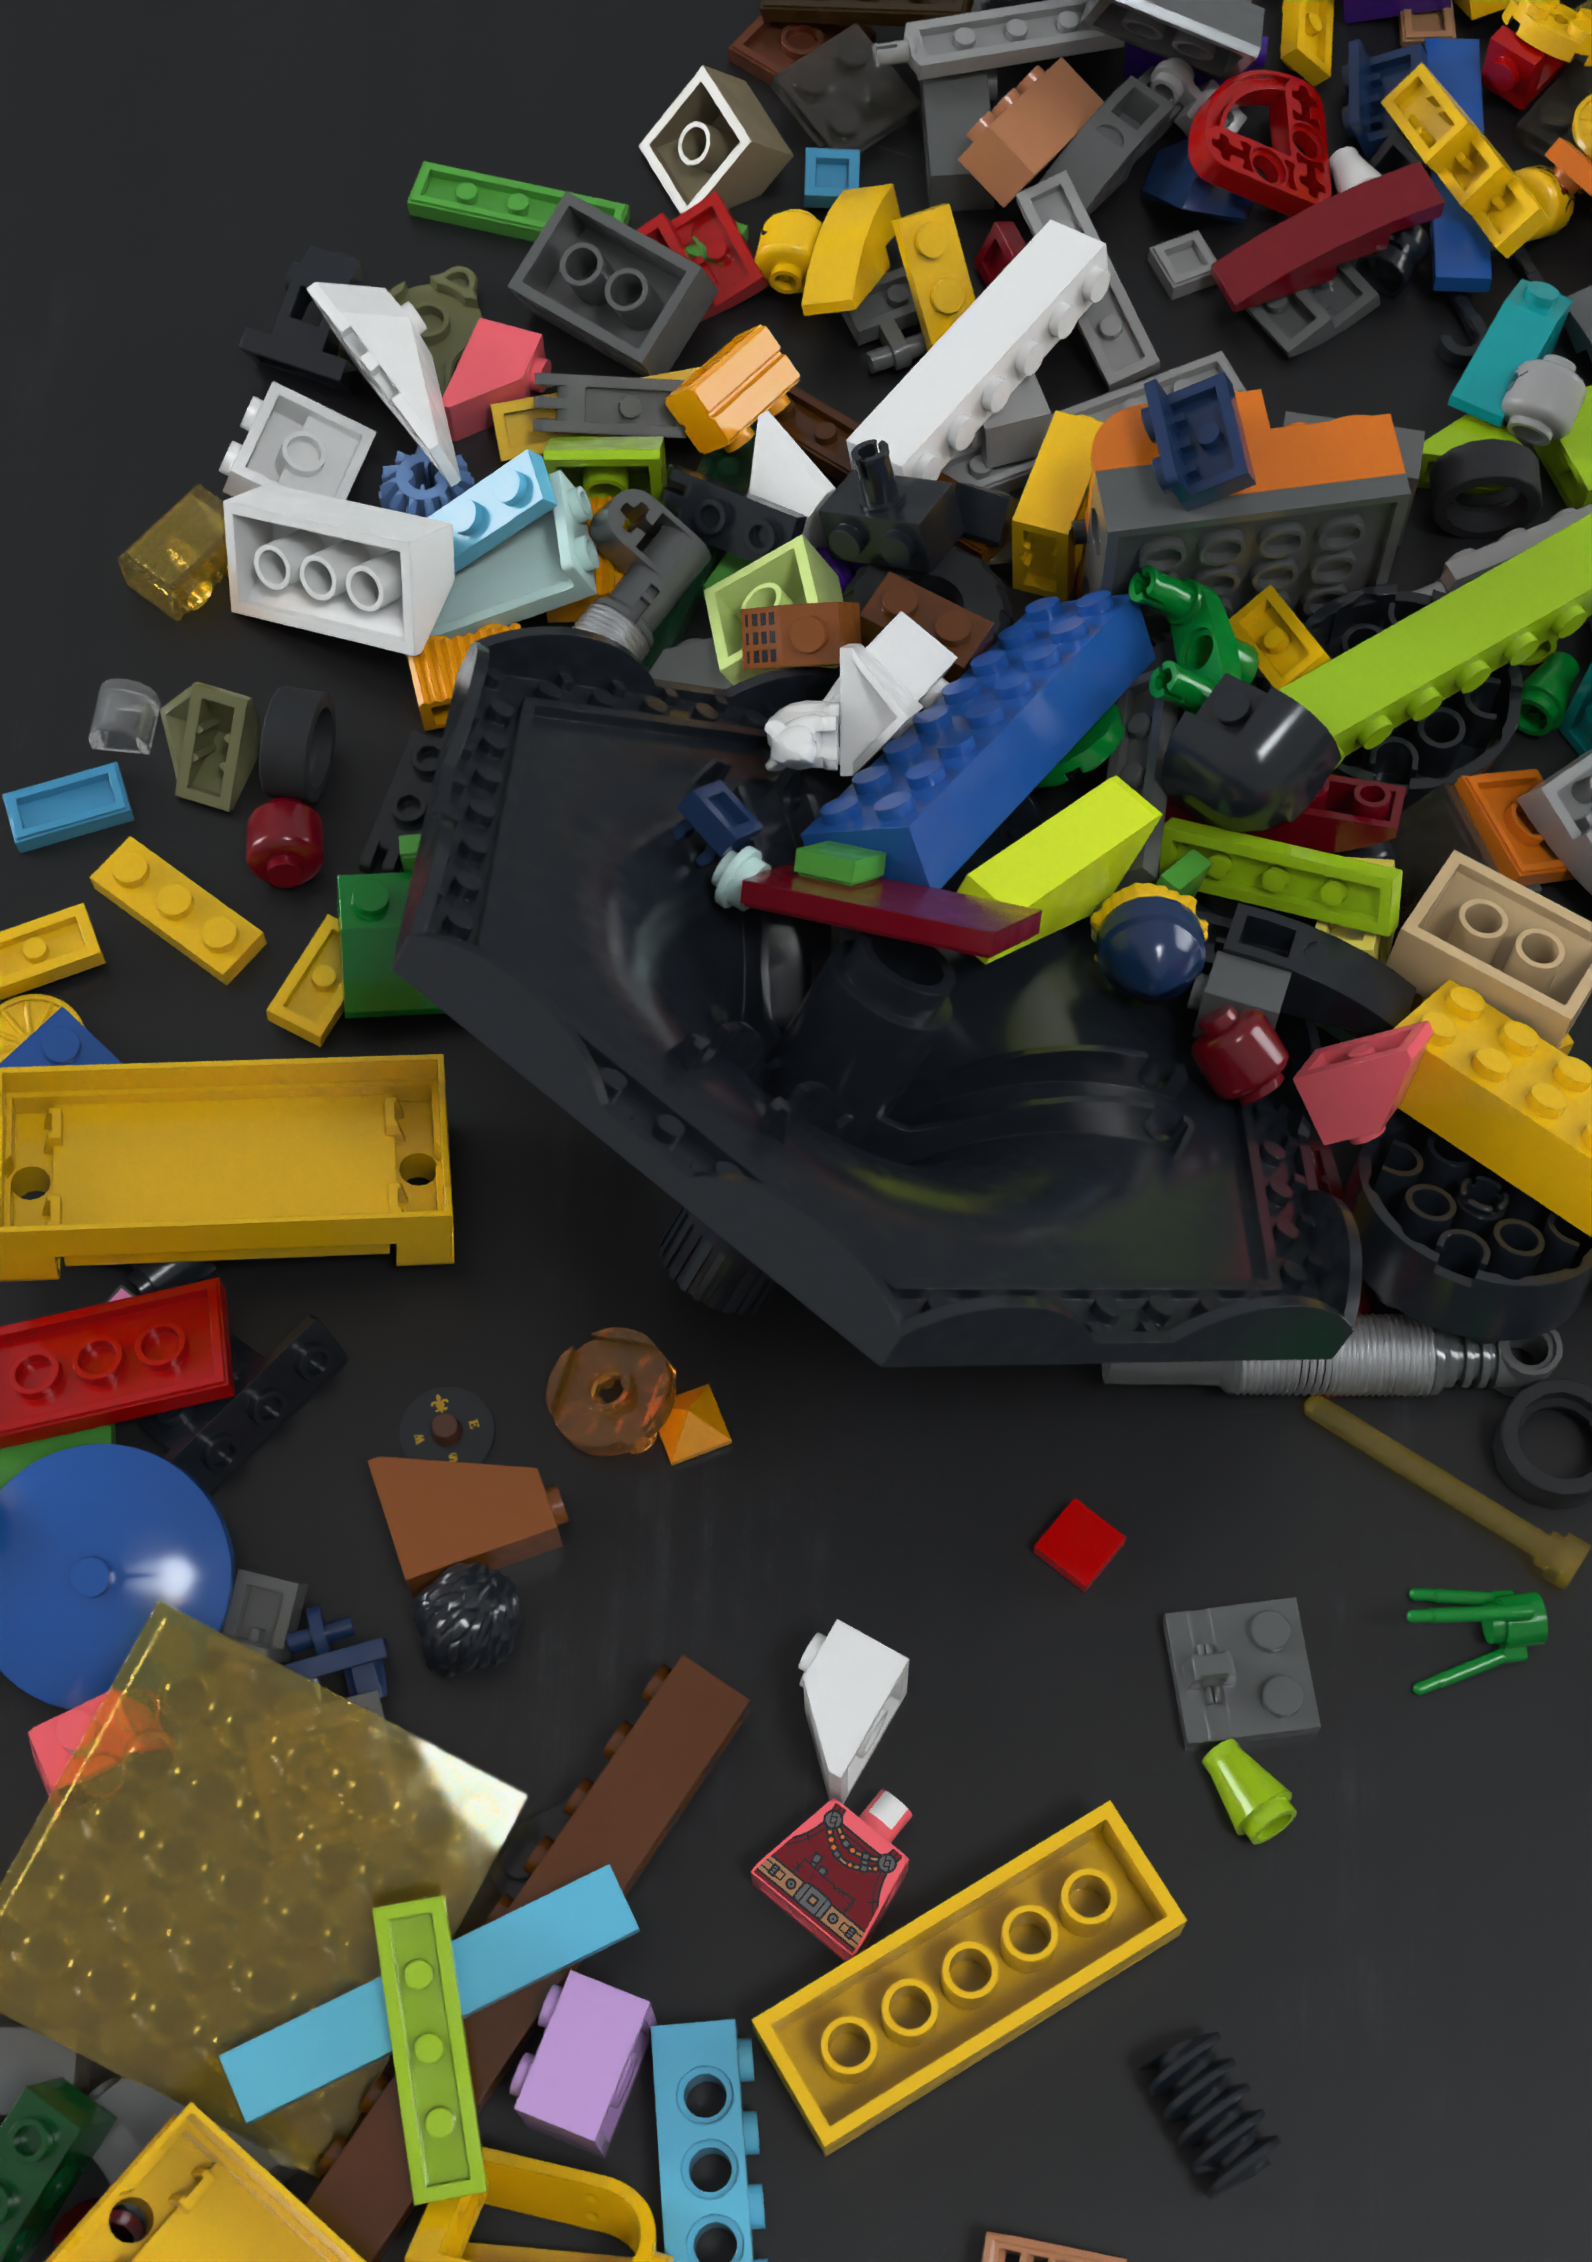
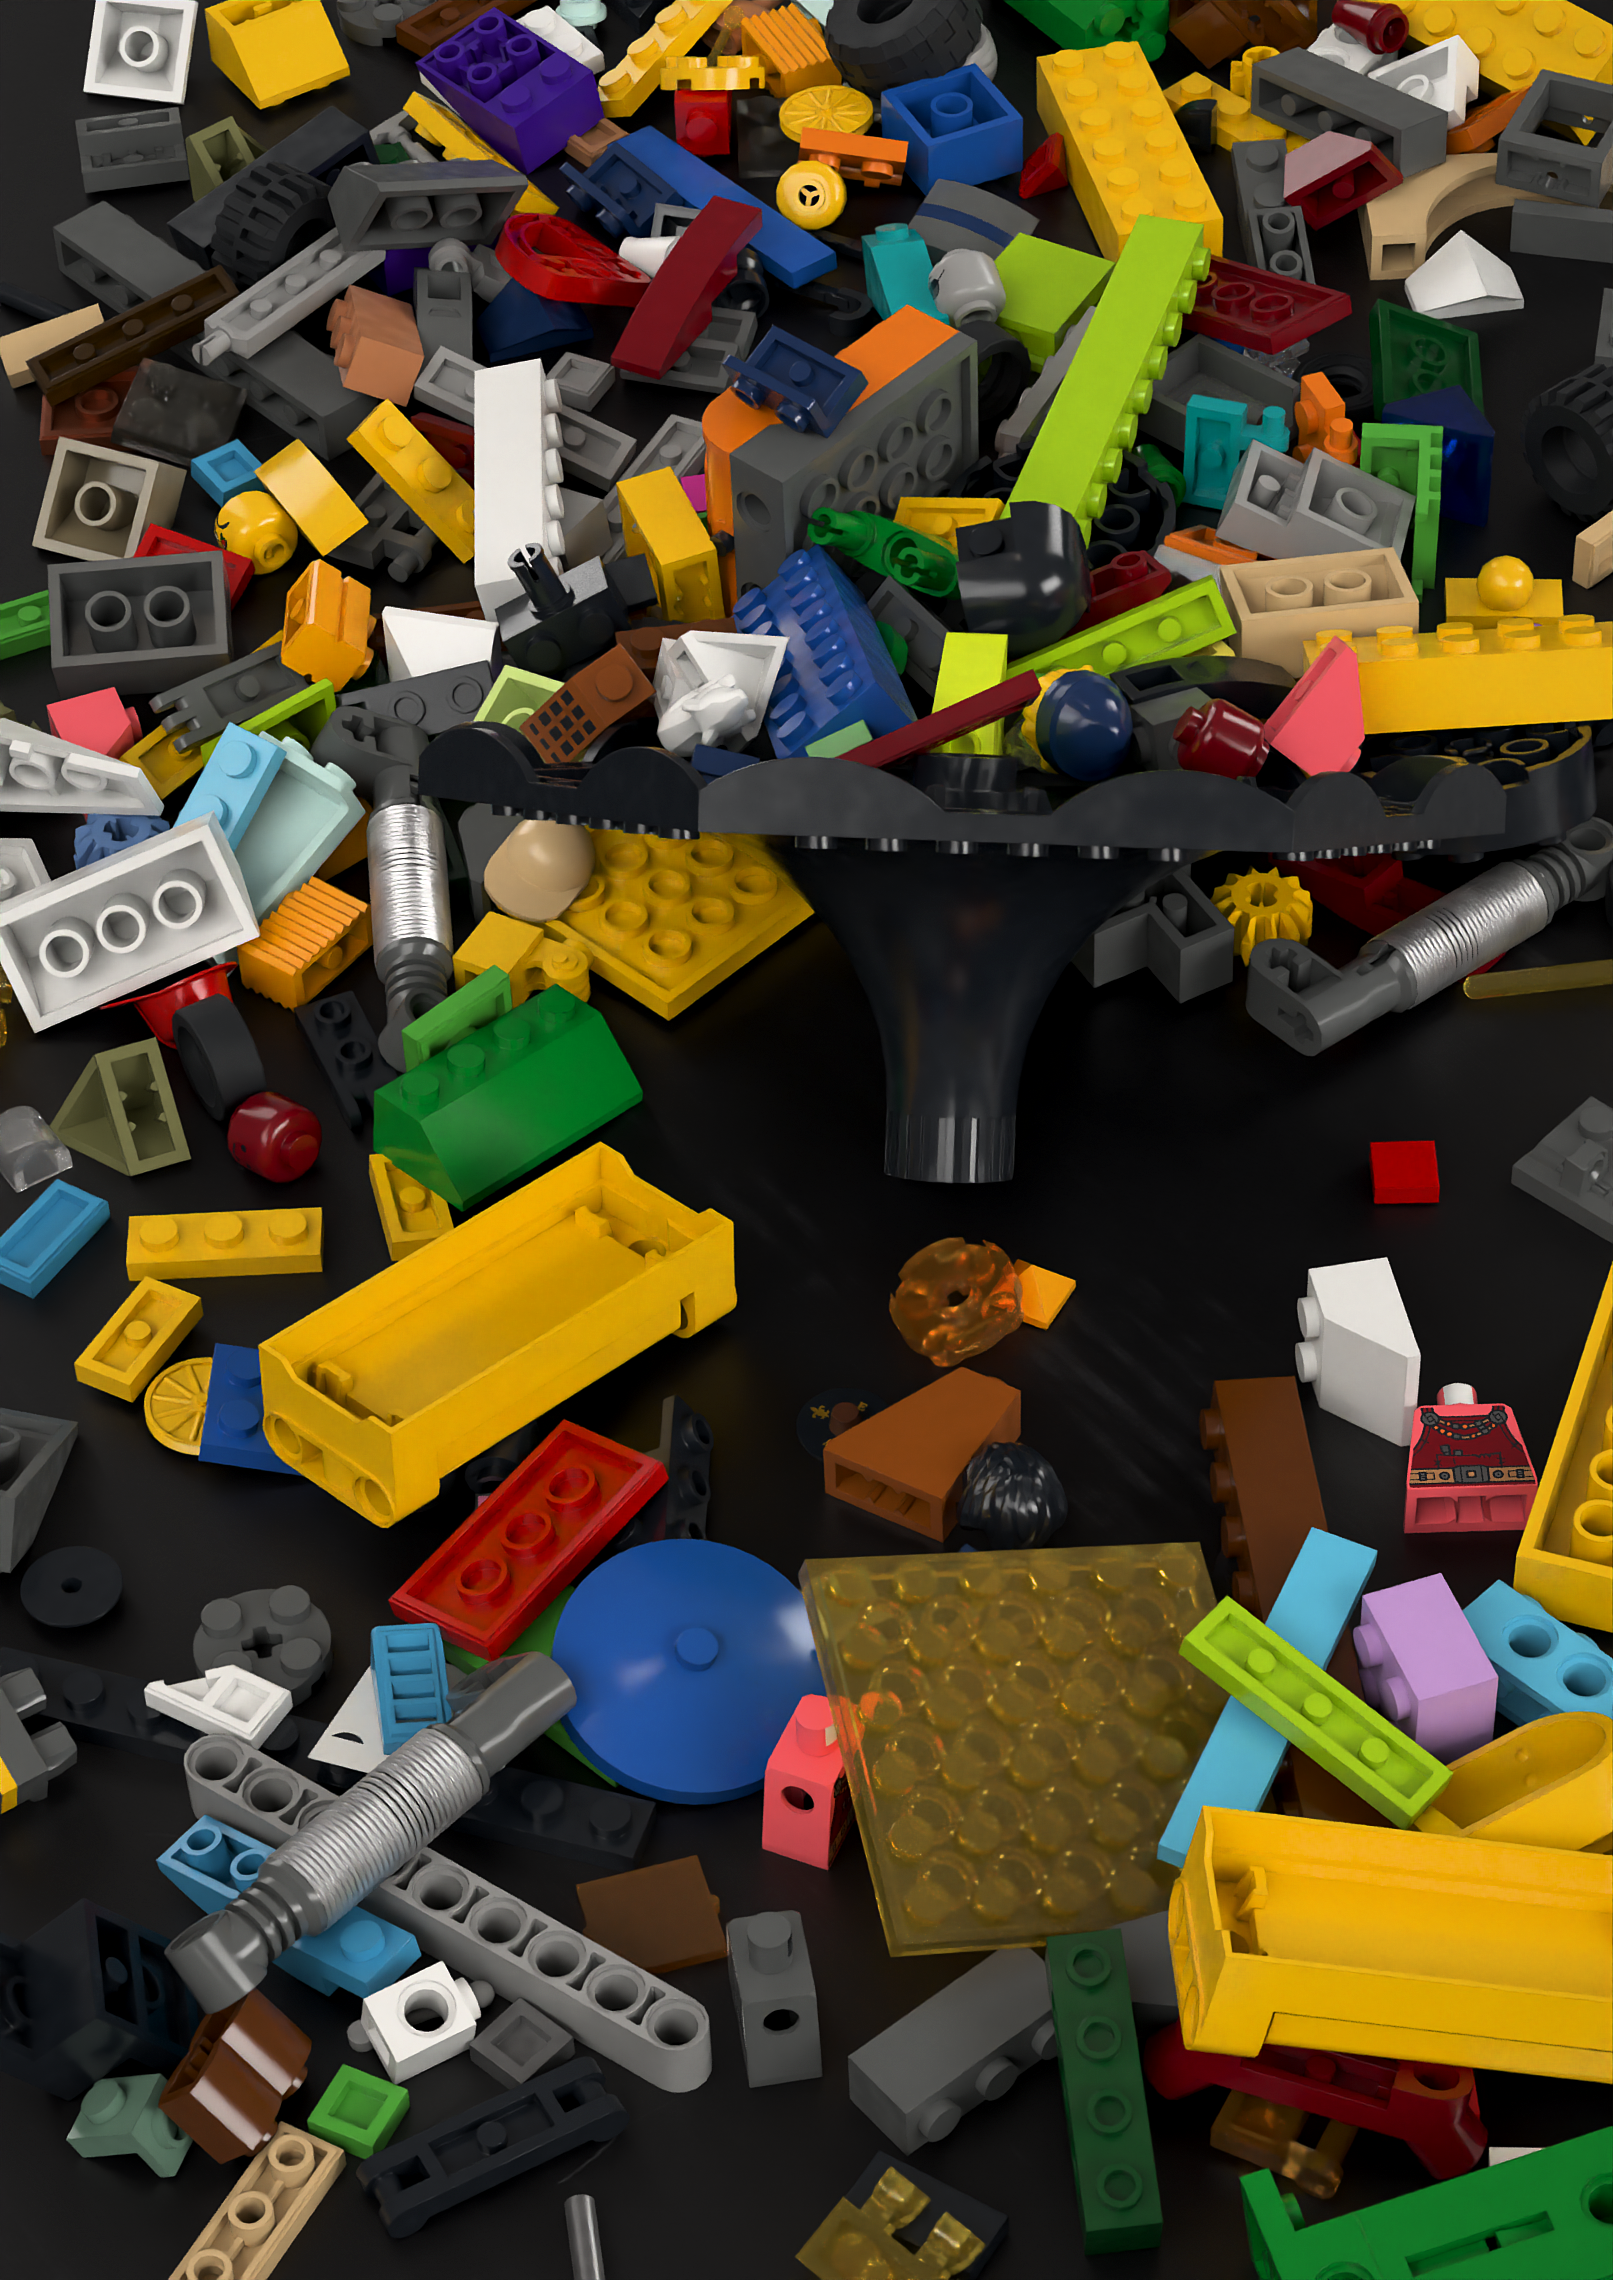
camera: 40 degrees left, 20 degrees down
(331, 666) = (160, 1006): none -> red piece
(1465, 160) = (696, 173): yellow slope -> none

